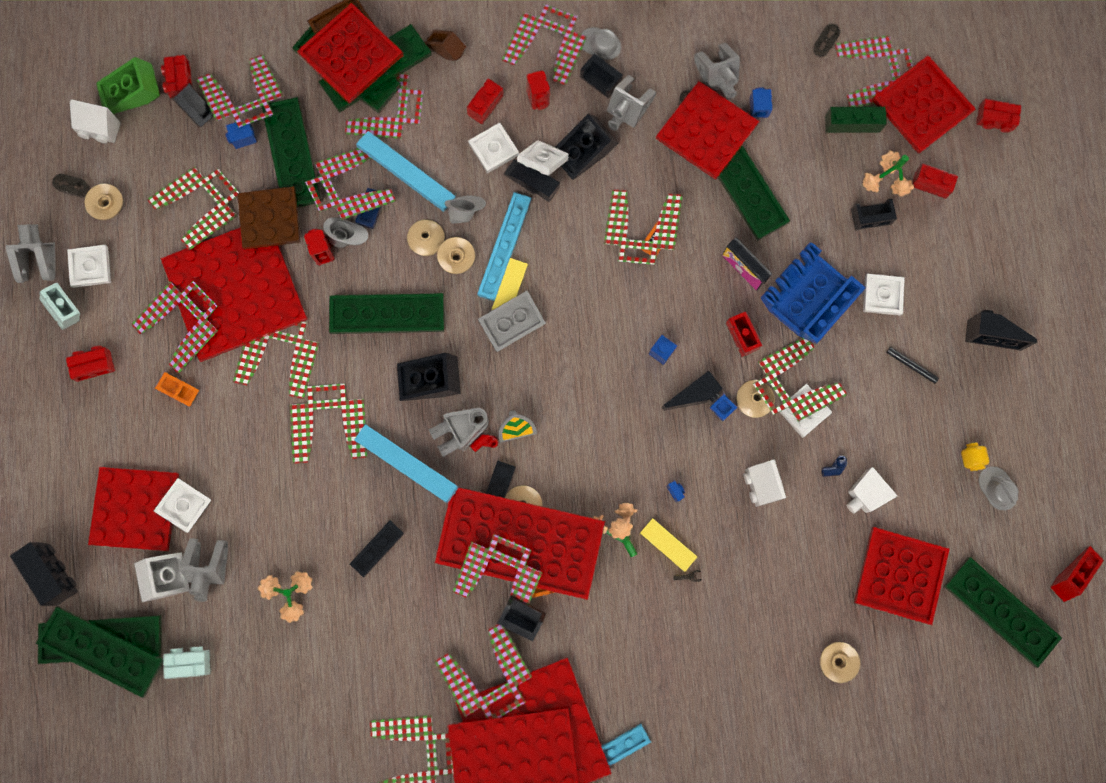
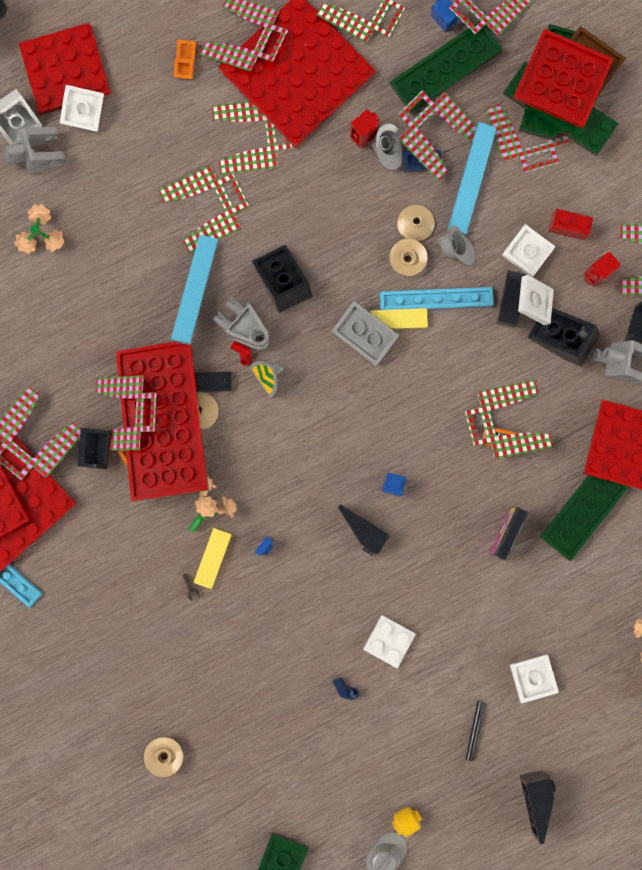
camera: 70 degrees right, 5 degrees up
(268, 217) = (374, 72): reddish brown plate -> none
(376, 549) = (109, 295): black plate -> none
(386, 313) = (328, 216): dark green plate -> none
(445, 44) = (612, 165): reddish brown slope -> none
(723, 407) = (361, 562): blue plate -> none
(743, 334) = (439, 555): red brick -> none
(746, 401) = (375, 583): tan dish -> none
(764, 483) = (301, 626): white slope -> none
(805, 404) = (395, 640): piece -> none
(811, 295) = (503, 608): blue slope -> none
(869, 492) = (333, 730): white torso -> none
(874, 215) = (610, 641): black panel -> none
(901, 576) = (266, 788): red plate -> none

